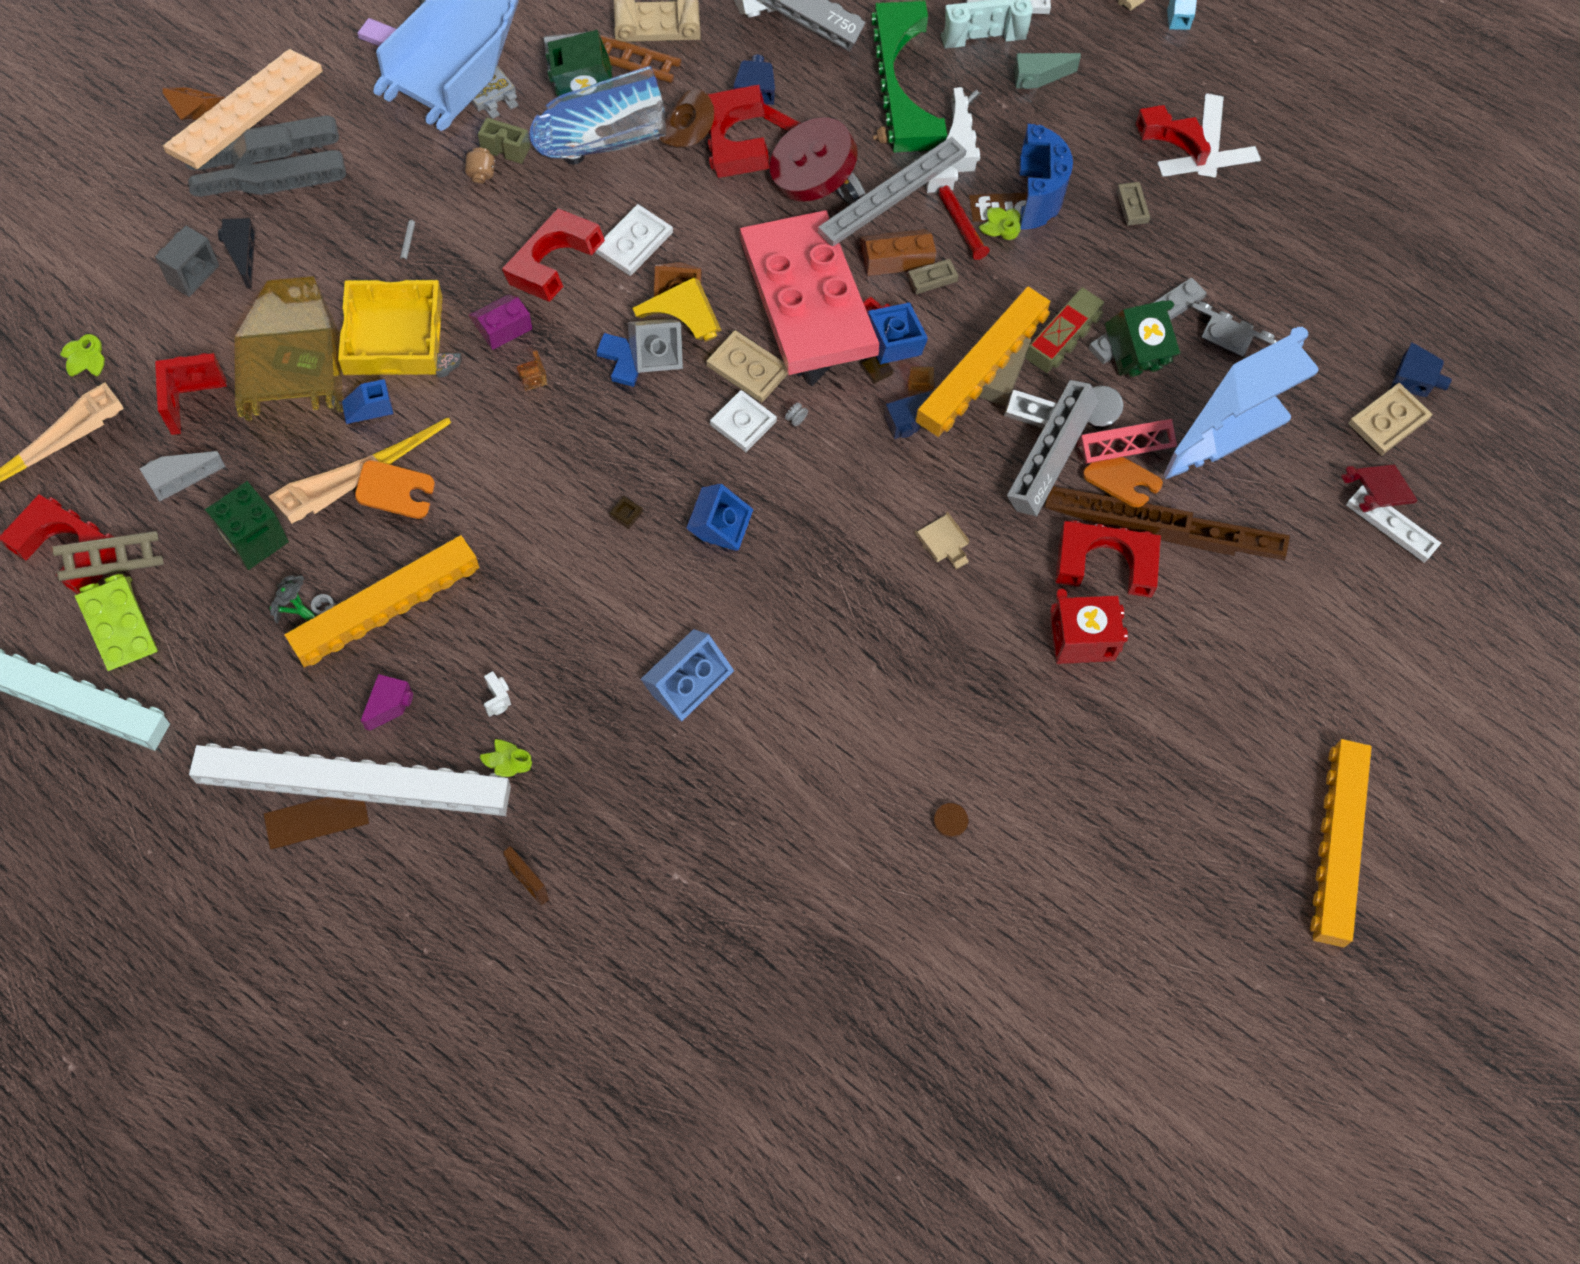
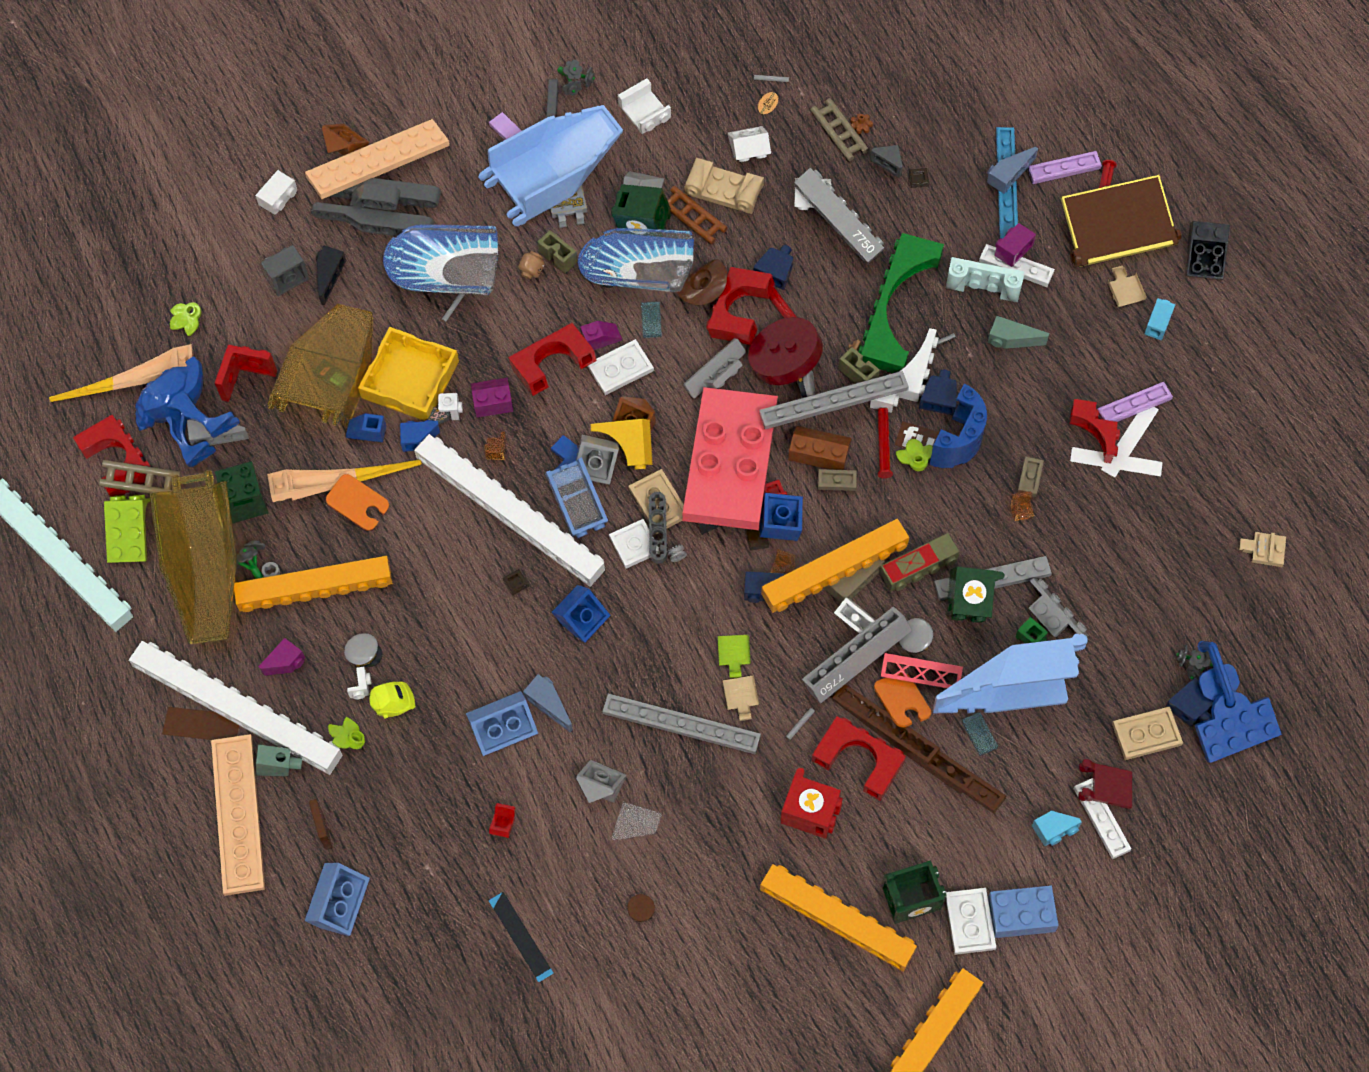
camera: 30 degrees right, 0 degrees up
(111, 448) = (173, 400): none -> blue animal
(136, 182) = (276, 192): none -> white brick
(226, 613) = (197, 554): none -> clear yellow windscreen
(374, 186) = (444, 259): none -> clear windscreen
(413, 908) = (237, 815): none -> light nougat plate
(433, 389) = (413, 433): none -> blue slope
(433, 824) = (275, 761): none -> sand green torso
(456, 340) = (450, 403): none -> white bracket
(480, 654) = (363, 650): none -> light grey piece
(542, 697) = (392, 699): none -> neon yellow helmet
(581, 434) = (510, 510): none -> white brick
(585, 958) = (337, 898): none -> medium blue slope
(596, 210) = (600, 334): none -> magenta slope
(643, 180) = (651, 319): none -> clear light blue tile
(656, 392) = (577, 498): none -> clear door
(731, 629) = (544, 697): none -> sand blue slope
(742, 784) = (502, 820): none -> red bracket
(744, 207) = (717, 370): none -> light grey bracket
(761, 393) = (657, 527): none -> dark grey beam
(827, 911) = (521, 937): none -> black sticker
(836, 696) = (600, 782): none -> light grey slope
(893, 596) = (681, 723): none -> light grey plate
(895, 154) = (855, 369): none -> olive brick
(897, 725) = (635, 822): none -> clear wing
(913, 497) = (733, 652): none -> lime piece
(998, 152) = (940, 394): none -> dark blue torso
(1022, 548) = (801, 722): none -> light grey piece
(1139, 237) = (1022, 506): none -> clear orange panel
(1176, 740) = (837, 917): none -> light orange brick
(1200, 95) = (1135, 403): none -> lavender tile
(1219, 485) = (979, 734): none -> clear light blue tile
(1220, 360) = (1029, 629): none -> green brick
(1234, 689) = (905, 894): none -> dark green container
(1317, 686) = (970, 921): none -> white plate
(1349, 550) = (1054, 826): none -> medium azure slope
(1367, 653) = (1023, 911): none -> medium blue brick
(1405, 192) = (1266, 548): none -> tan piece
(1408, 320) = (1198, 659): none -> dark grey plant
(1474, 370) = (1239, 723): none -> blue plate

